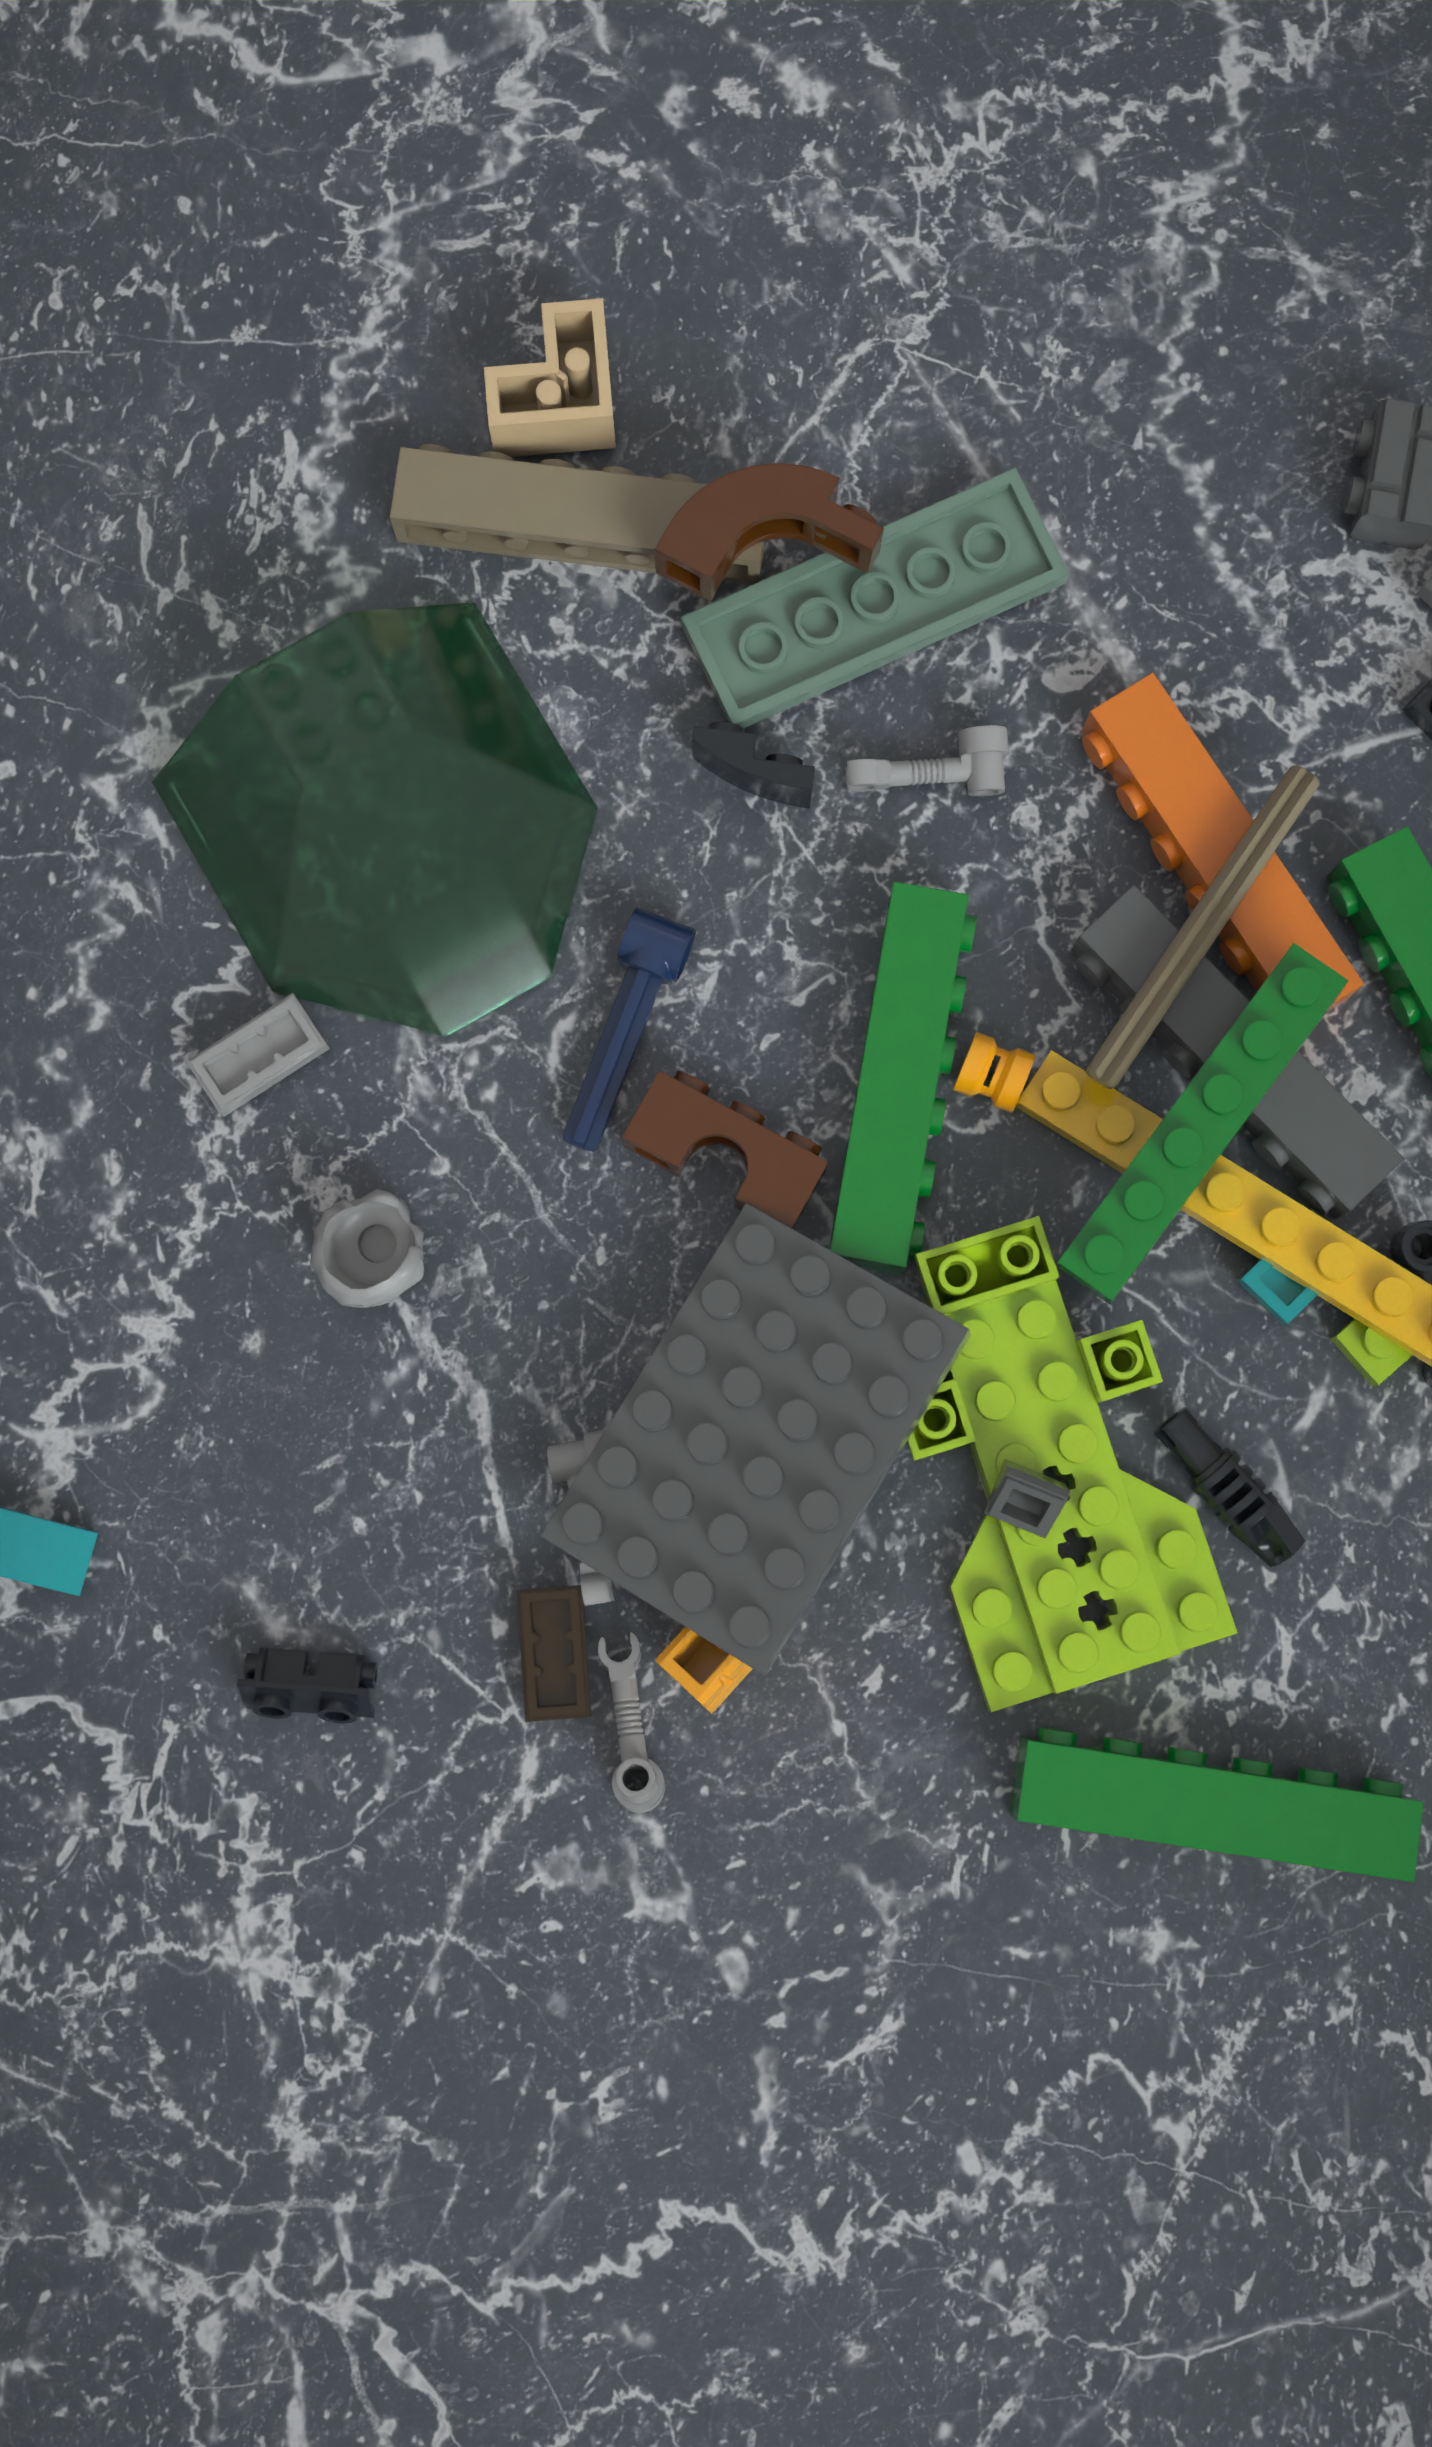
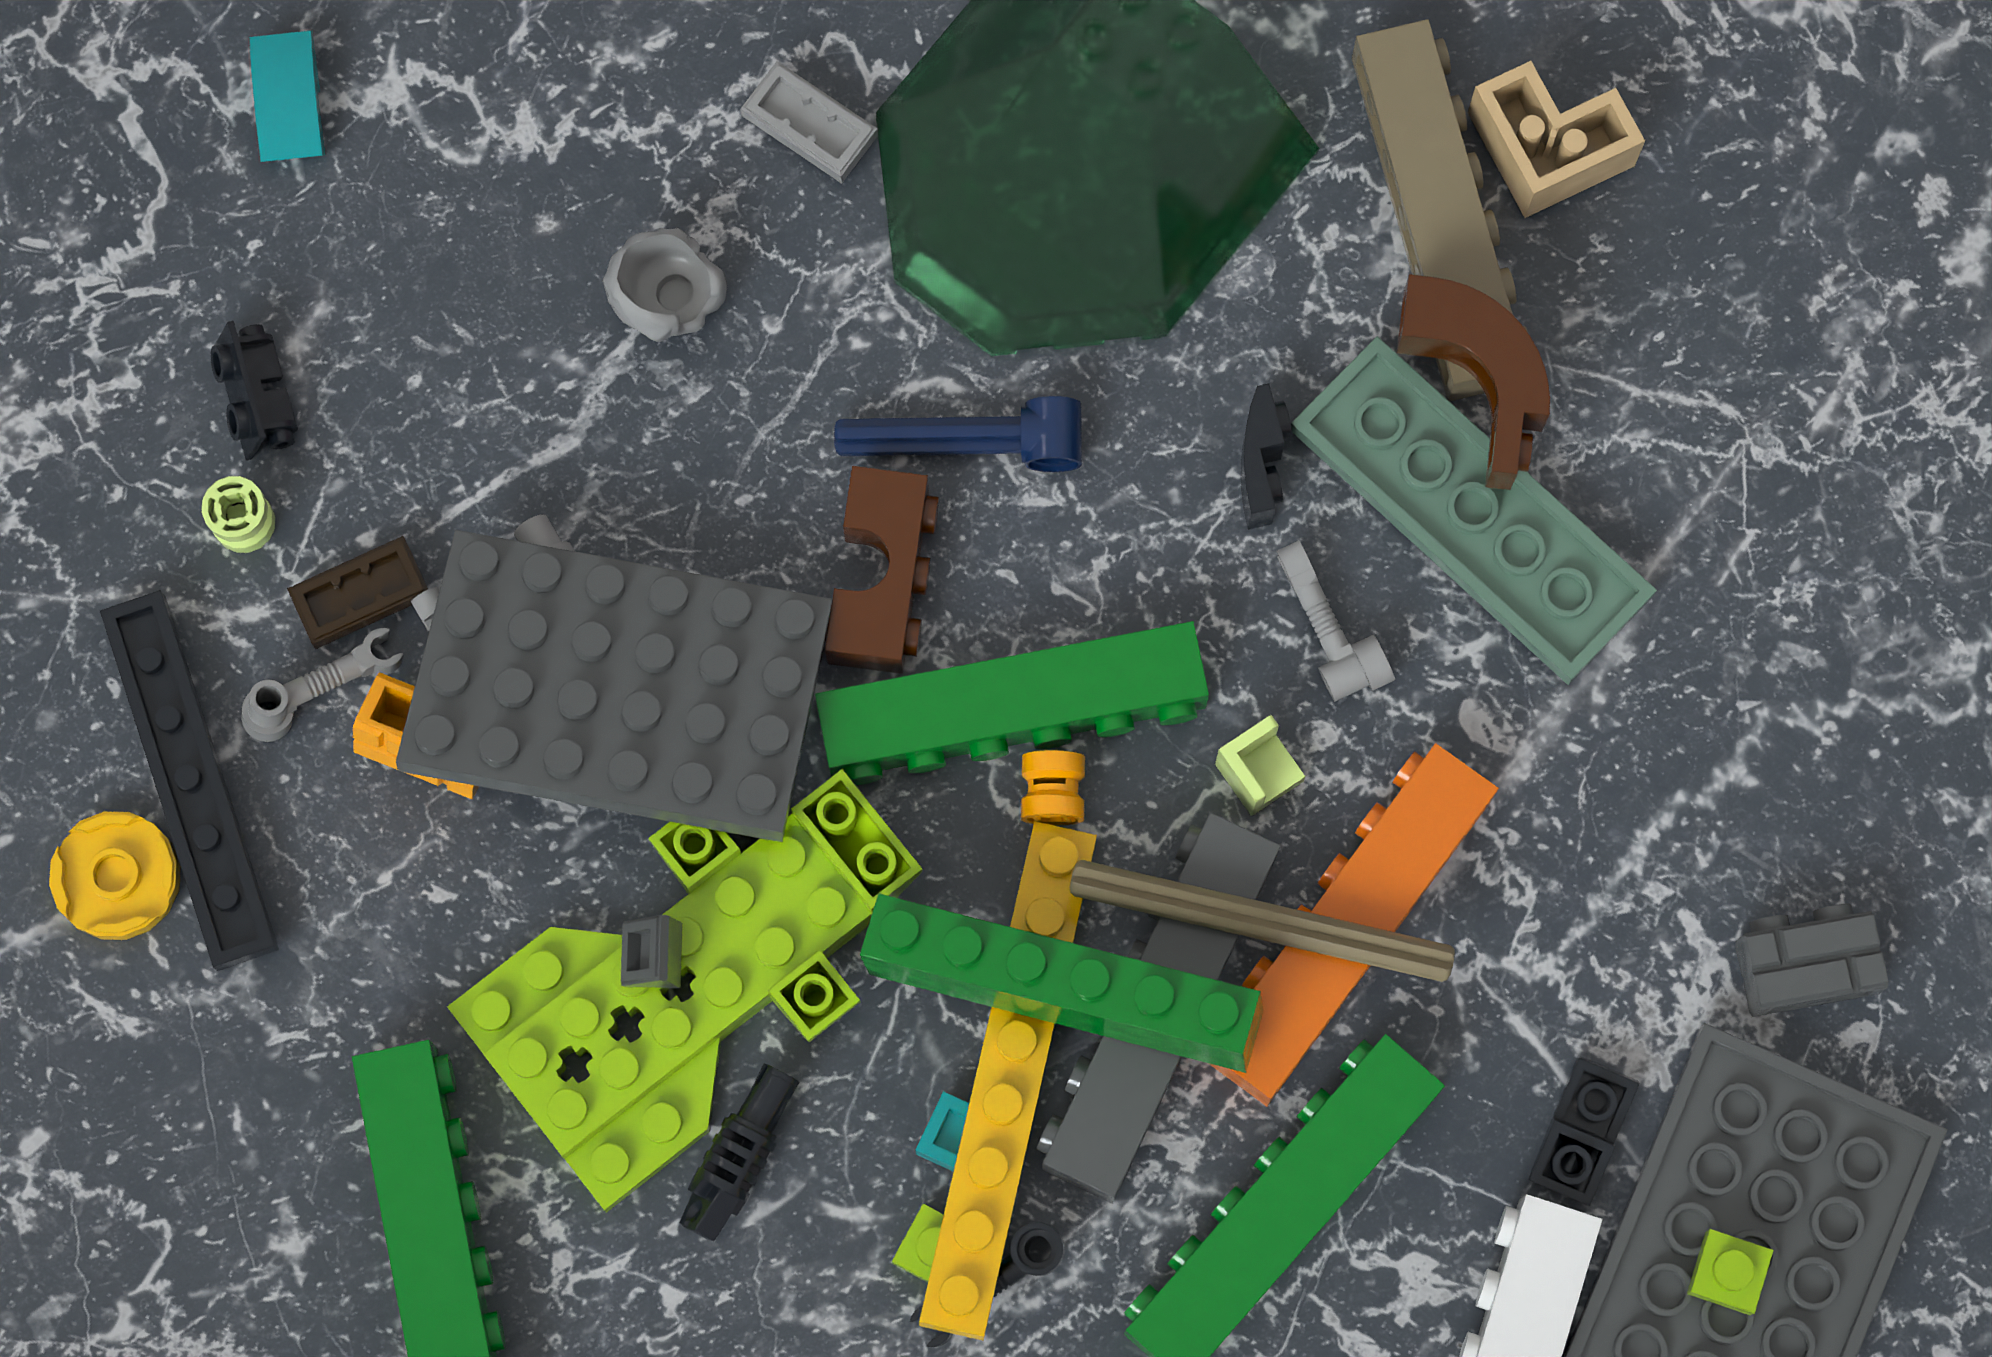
camera: 70 degrees right, 5 degrees down
(441, 1739) = (248, 524): none -> yellowish green wheel
(676, 1884) = (189, 781): none -> black plate
(740, 1990) = (115, 875): none -> yellow tile
(1042, 881) = (1258, 766): none -> yellowish green panel

